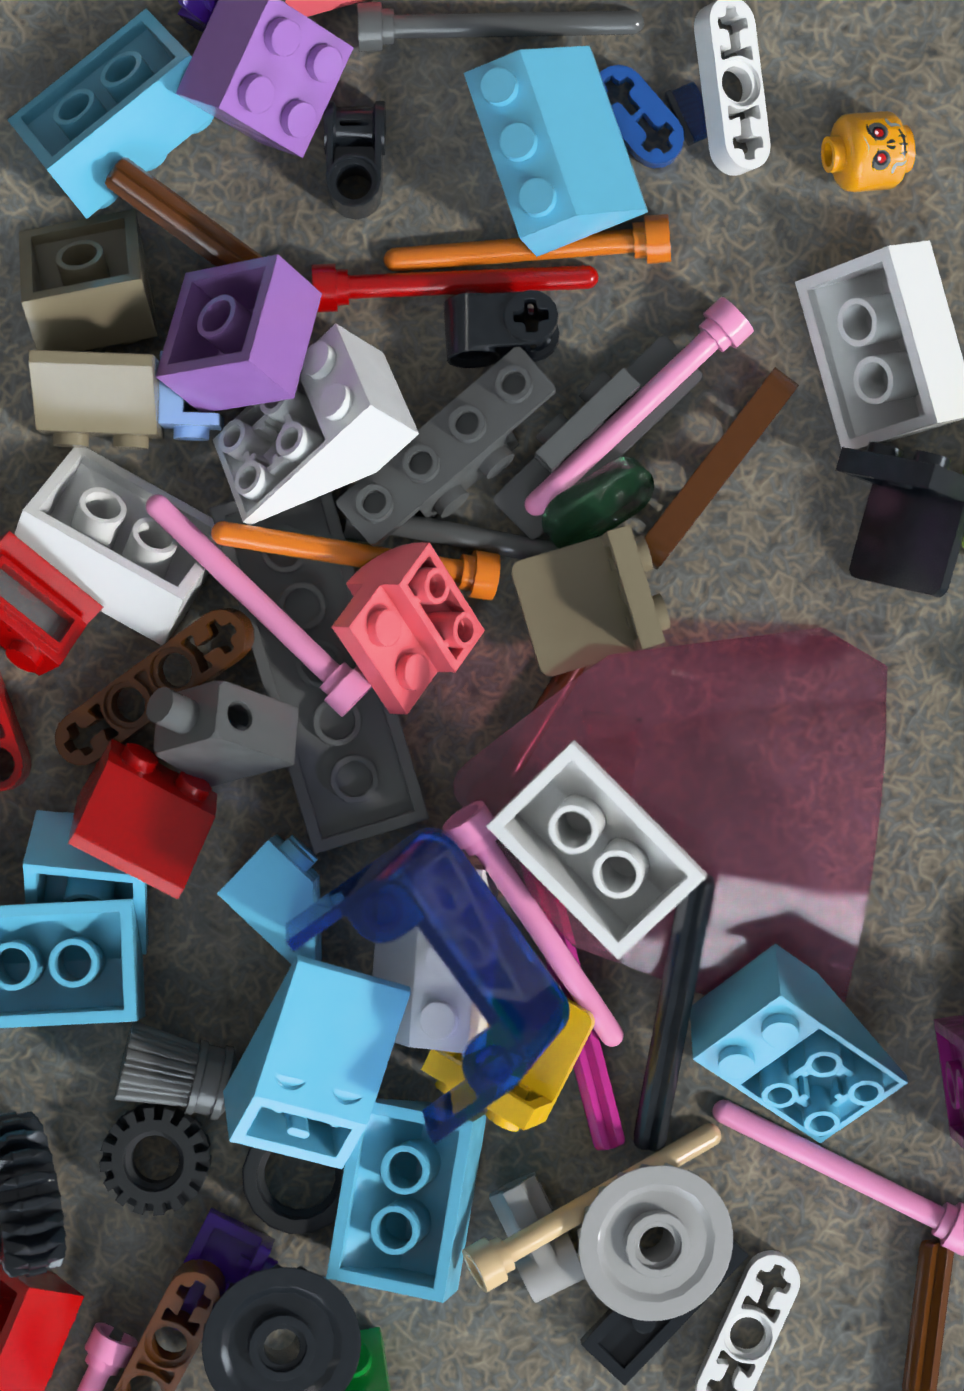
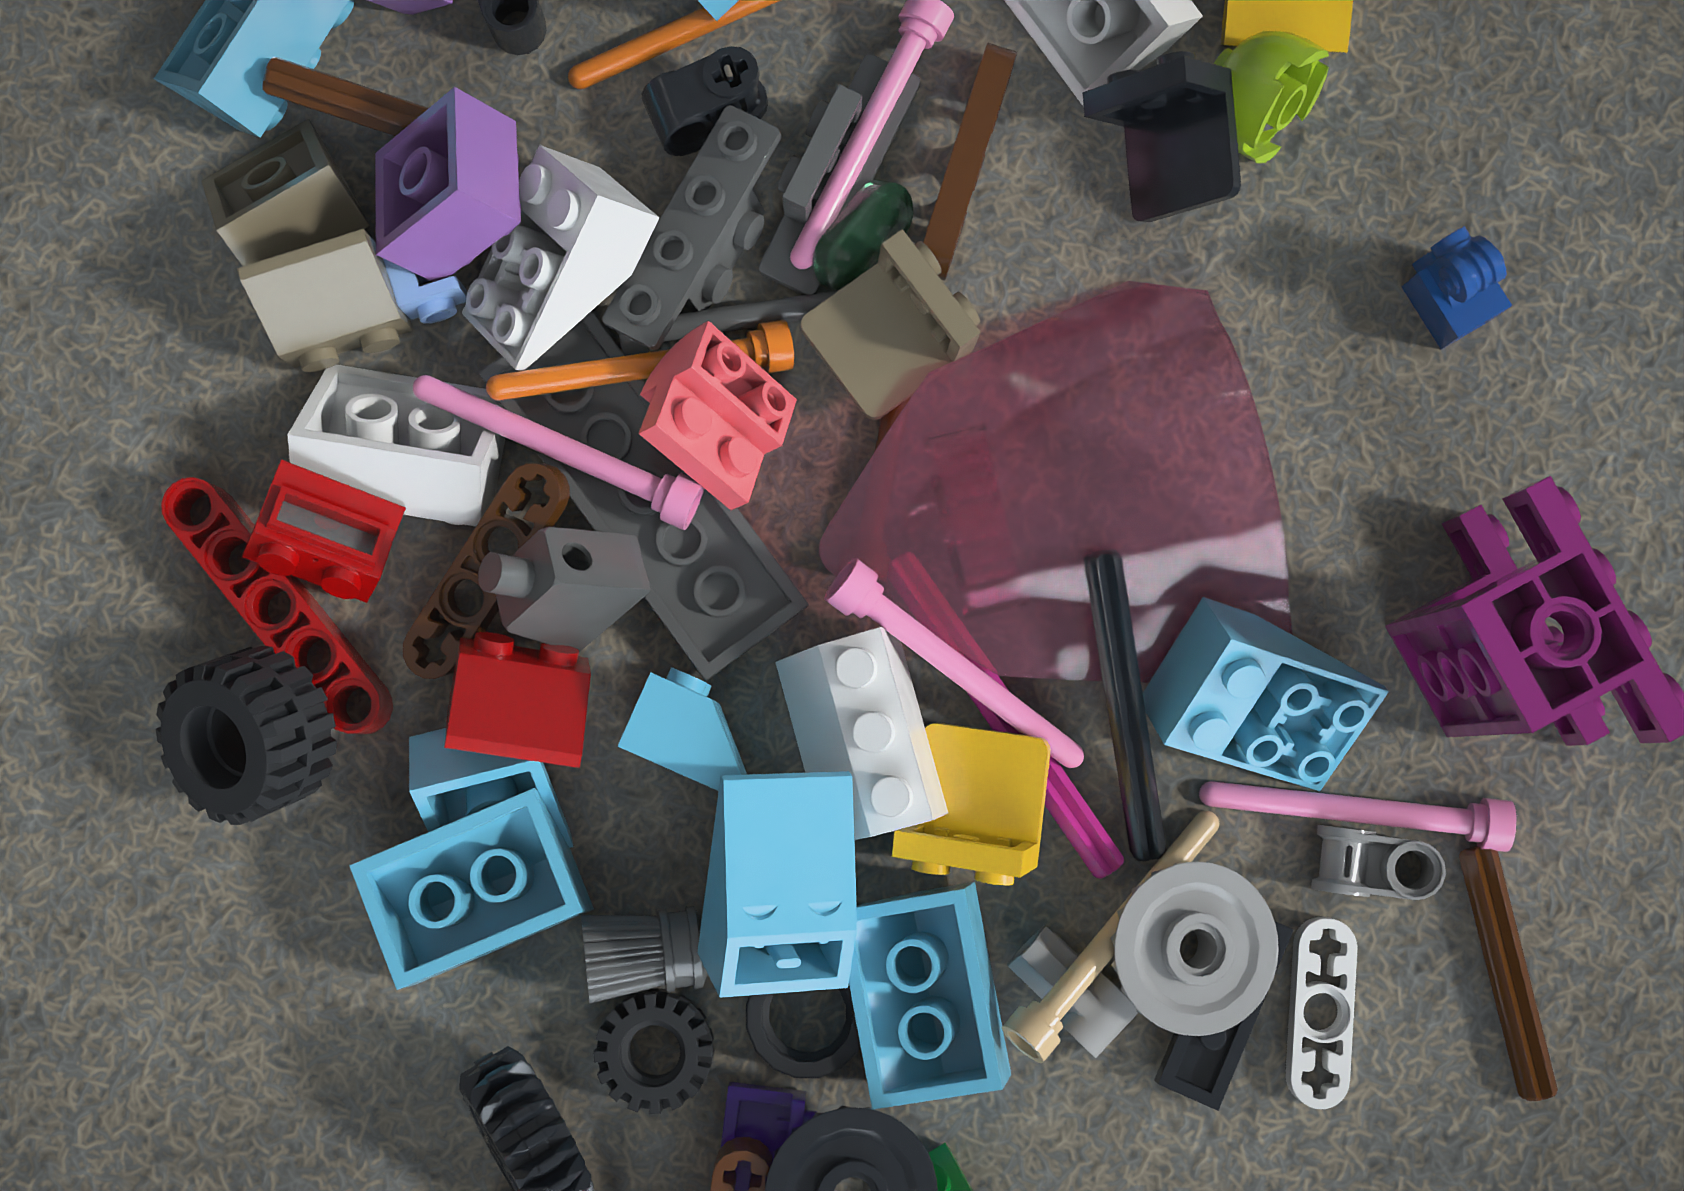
camera: 20 degrees left, 5 degrees down
(339, 287) = (535, 120): red piece -> none
(438, 889) = (842, 653): clear blue windscreen -> none
(596, 849) = (989, 556): white slope -> none
(836, 1224) = (1365, 865): none -> light grey piece

